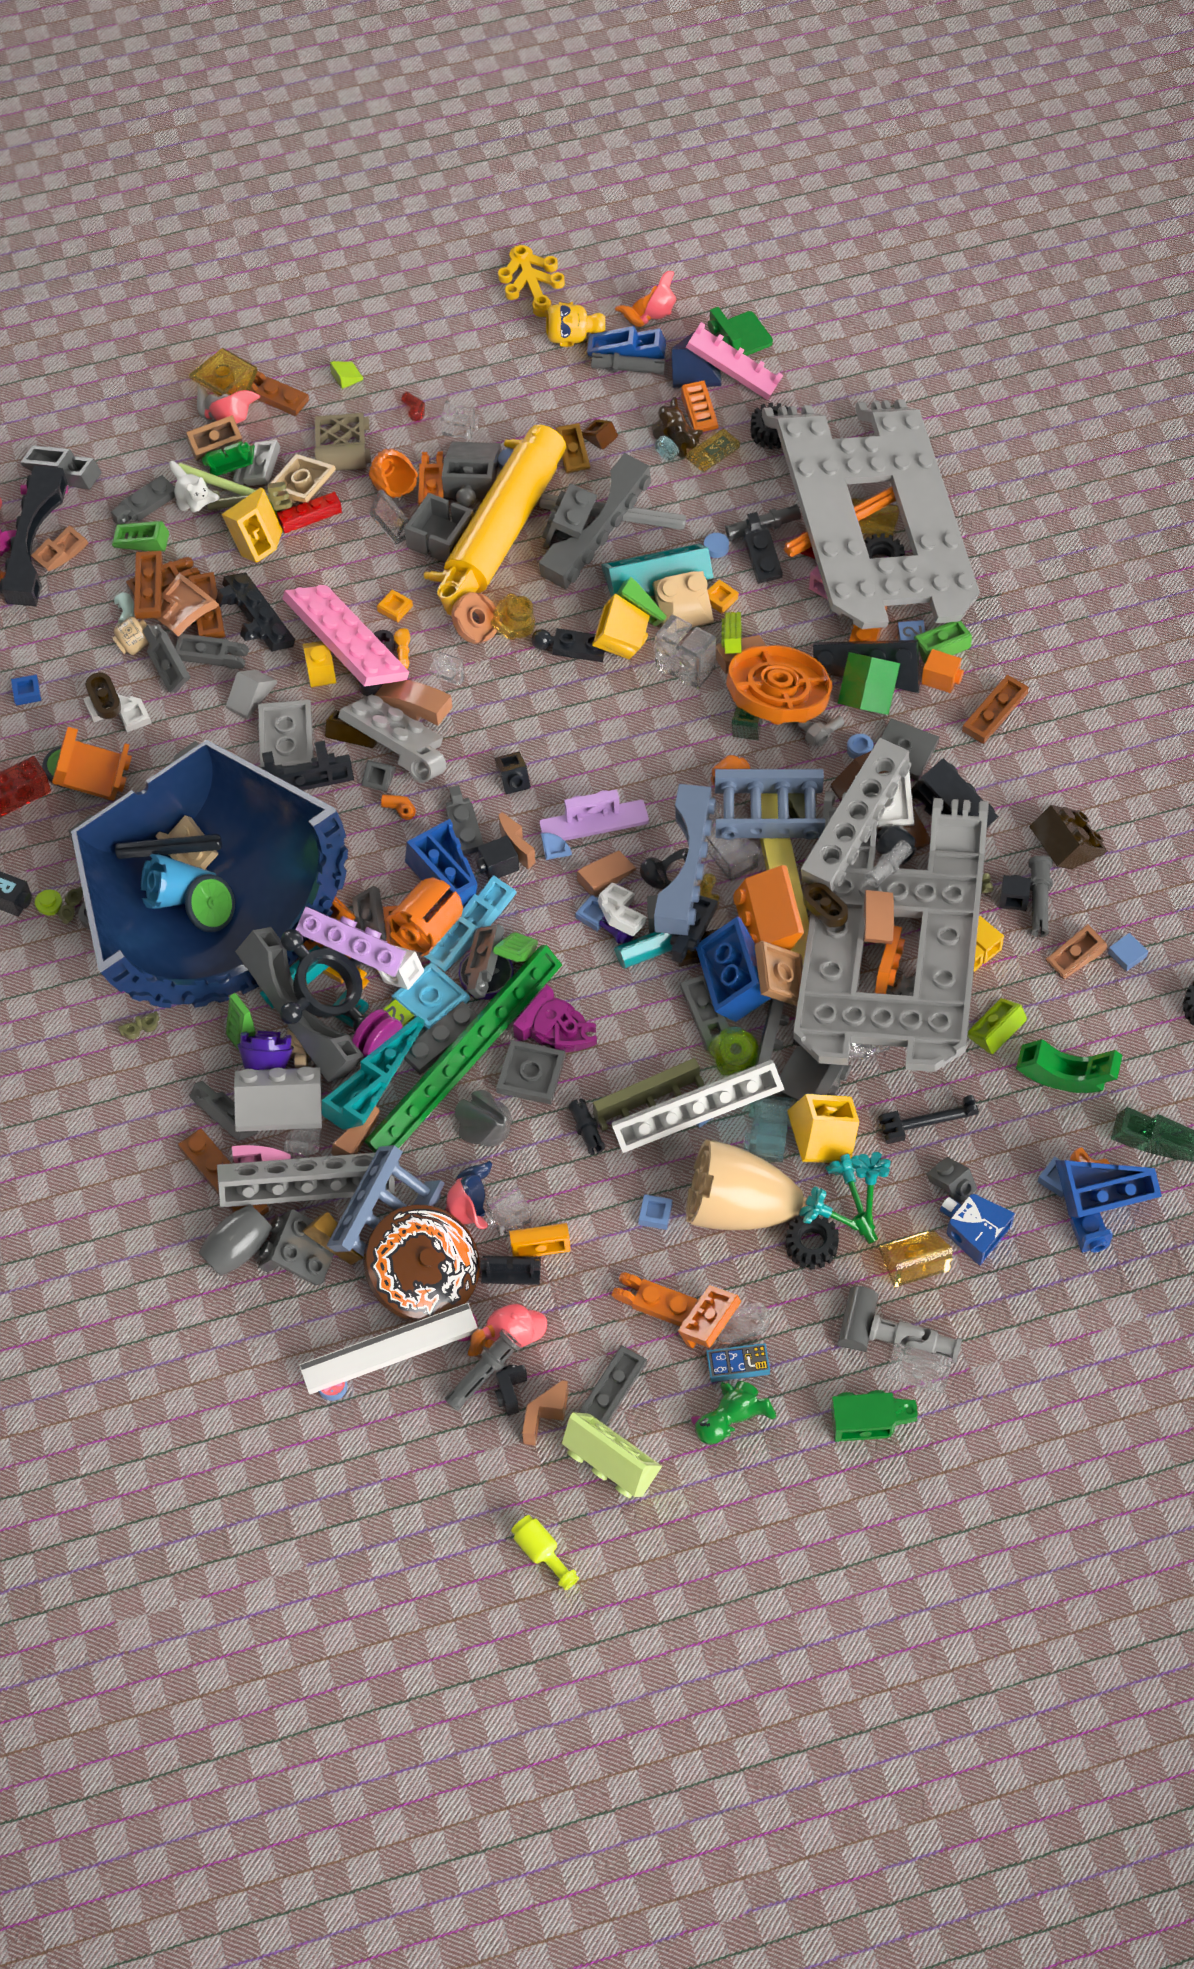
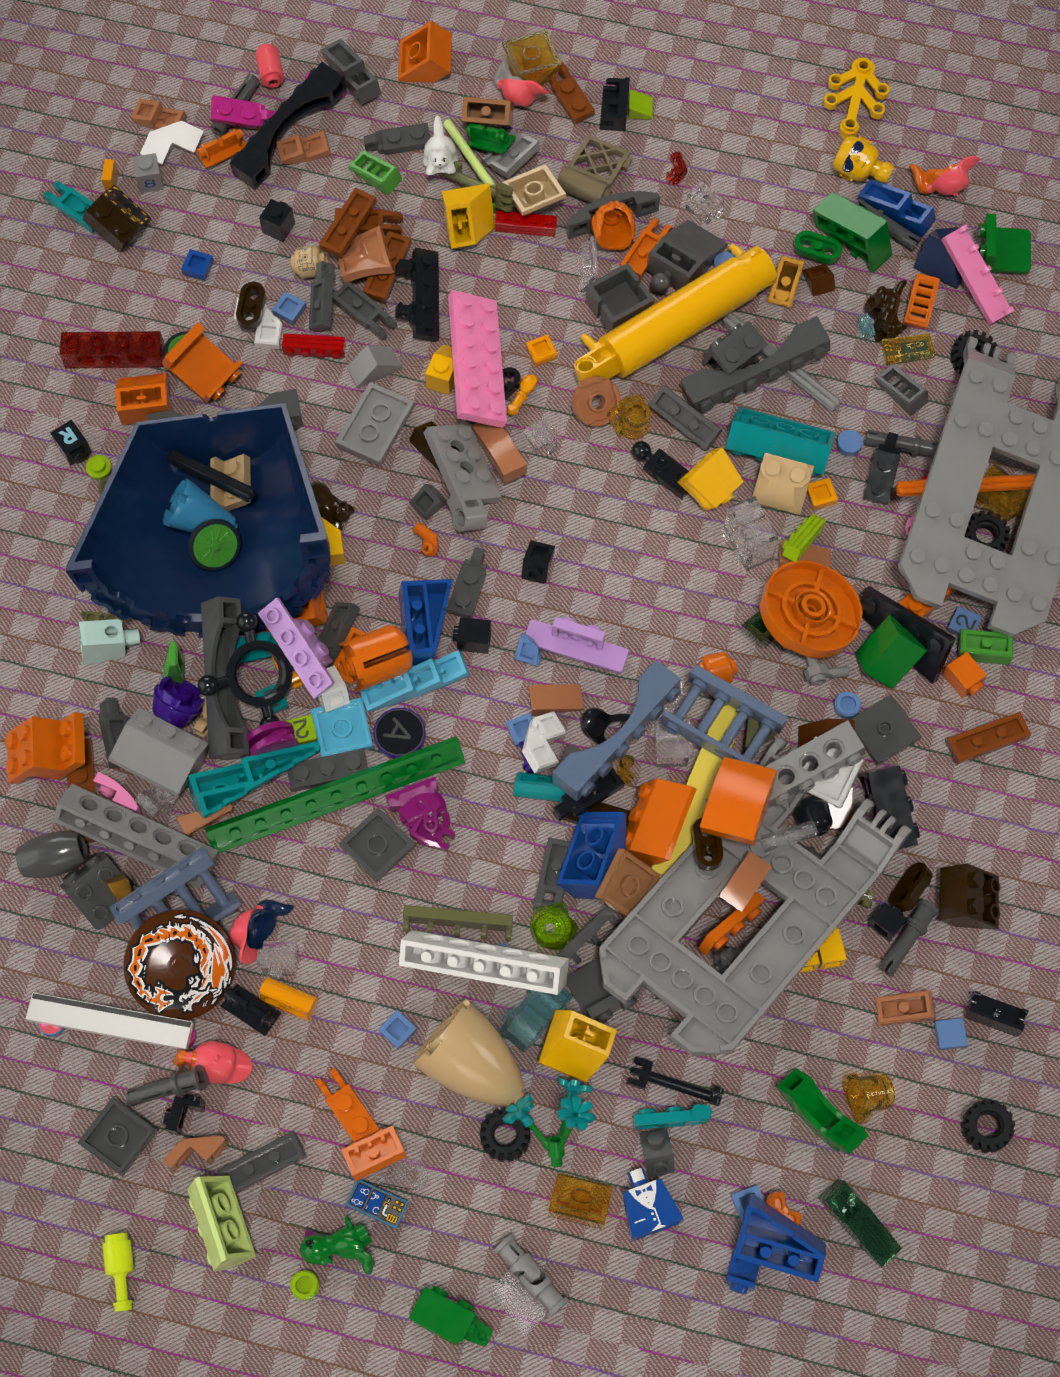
camera: 30 degrees right, 10 degrees up
(50, 821) = (141, 396): none -> orange slope
(78, 616) = (277, 220): none -> black brick
(121, 421) = (425, 54): none -> orange slope
(126, 603) = (323, 225): light aqua arm -> none
(138, 684) = (289, 308): none -> medium blue tile
(158, 1038) = (105, 640): none -> light aqua torso
(167, 1154) = (45, 748): none -> orange bracket
(183, 702) = (313, 345): none -> red piece
(320, 772) = (378, 472): black hinge -> none
(323, 381) = (615, 104): none -> black hinge
(360, 486) = (638, 201): none -> dark grey slope
(463, 1443) = (117, 1136): none -> dark grey plate
(482, 959) = (399, 722): dark grey hinge -> none
(483, 1119) = (313, 864): dark grey hat -> none
(516, 947) = (432, 728): bright green slope -> none
(525, 851) = (499, 623): nougat slope -> none
(562, 593) = (685, 417): none -> dark grey plate
(581, 408) = (818, 246): none -> green plate
(586, 1126) = (390, 920): black pin -> none
(604, 376) = (856, 228): none -> green wedge
(634, 593) = (739, 456): bright green slope -> none
(721, 1466) = (304, 1285): none -> lime tile
(744, 489) = (913, 400): none -> dark grey slope
(832, 850) = (738, 801): none -> orange slope
(858, 1318) = (497, 1227): dark grey brick -> none
(945, 1145) = (672, 1118): none -> teal hinge
(997, 1025) = (791, 1034): lime slope -> none
(1014, 854) = (911, 887): none -> dark brown plate
(1095, 1031) = (868, 1094): none -> clear yellow piece
(1154, 916) = (996, 1014): none -> black hinge

